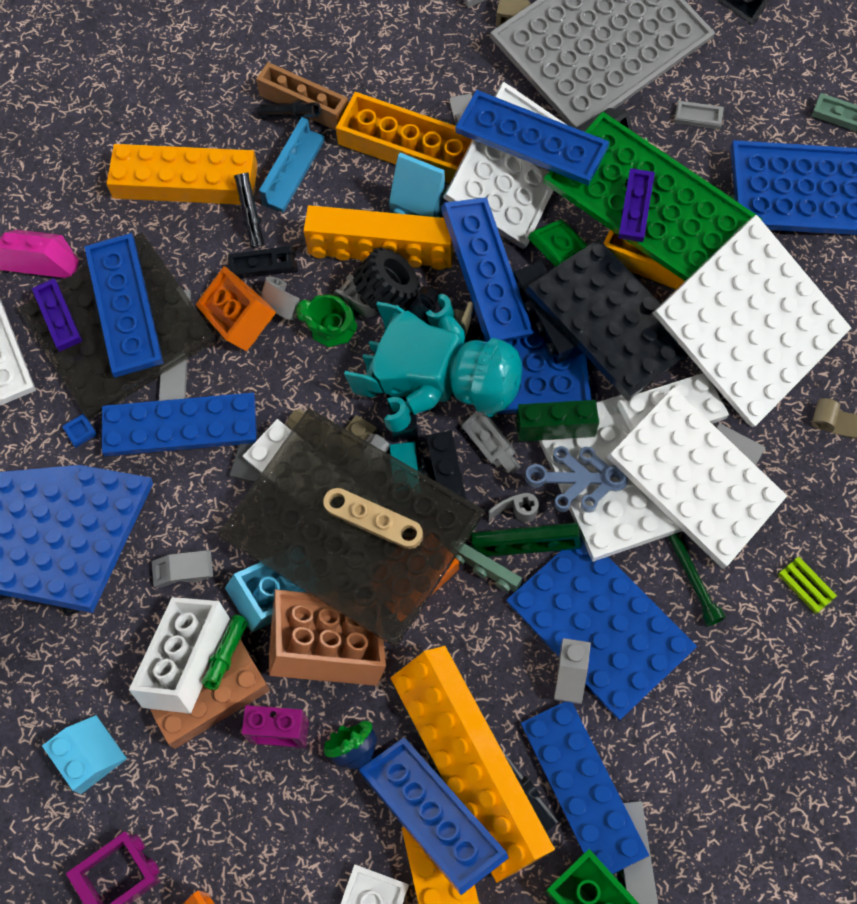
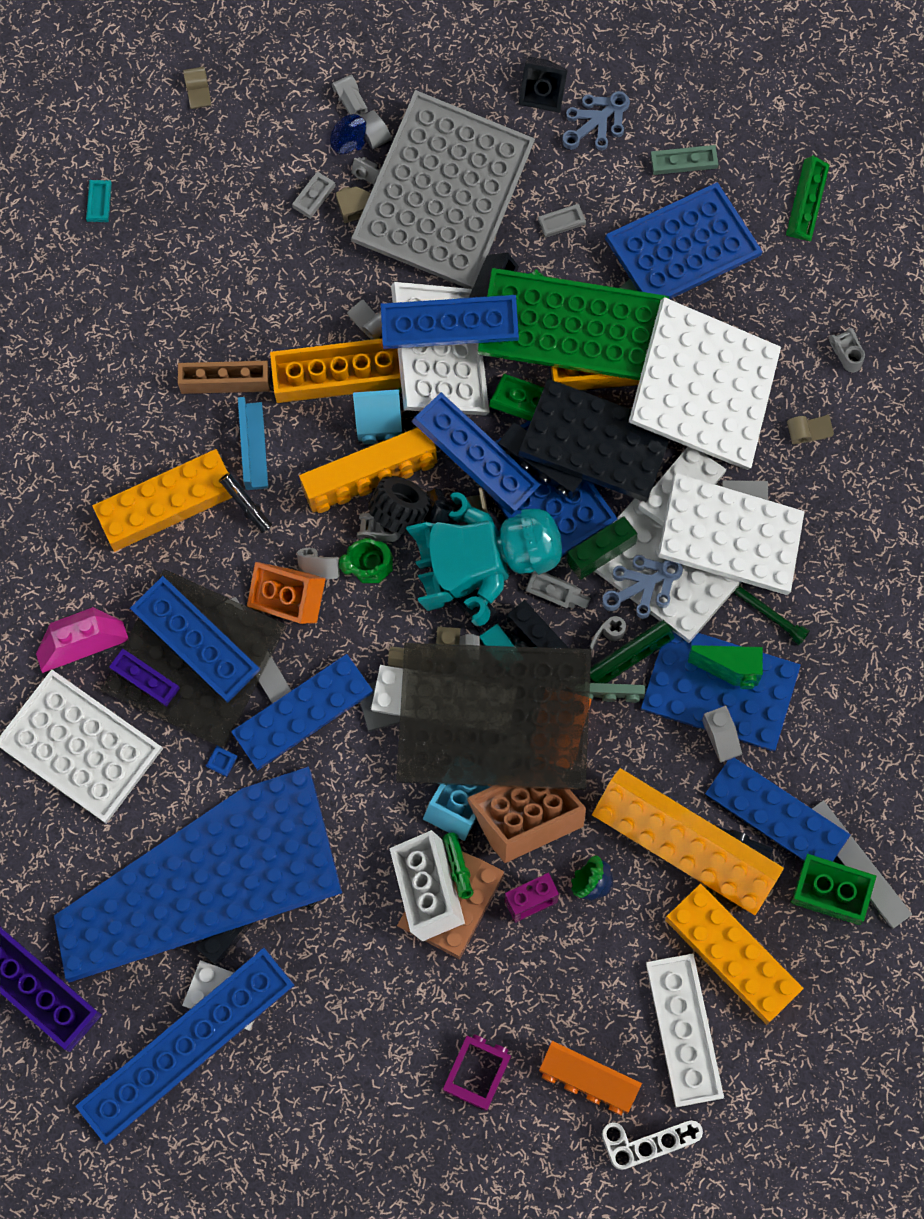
camera: 30 degrees left, 5 degrees up
(84, 753) = (396, 1000): medium azure slope -> none
(182, 567) = (379, 823): light grey slope -> none
(263, 262) = (281, 540): black plate -> none
(294, 110) = (229, 393): black pin -> none
(373, 518) = (511, 702): tan plate -> none
(433, 815) = (684, 892): blue plate -> none
(622, 603) = (730, 663): none -> green slope
(636, 205) = (566, 337): dark purple plate -> none
(785, 44) = (598, 118): none -> sand blue plant
(814, 578) = (870, 587): lime tile -> none

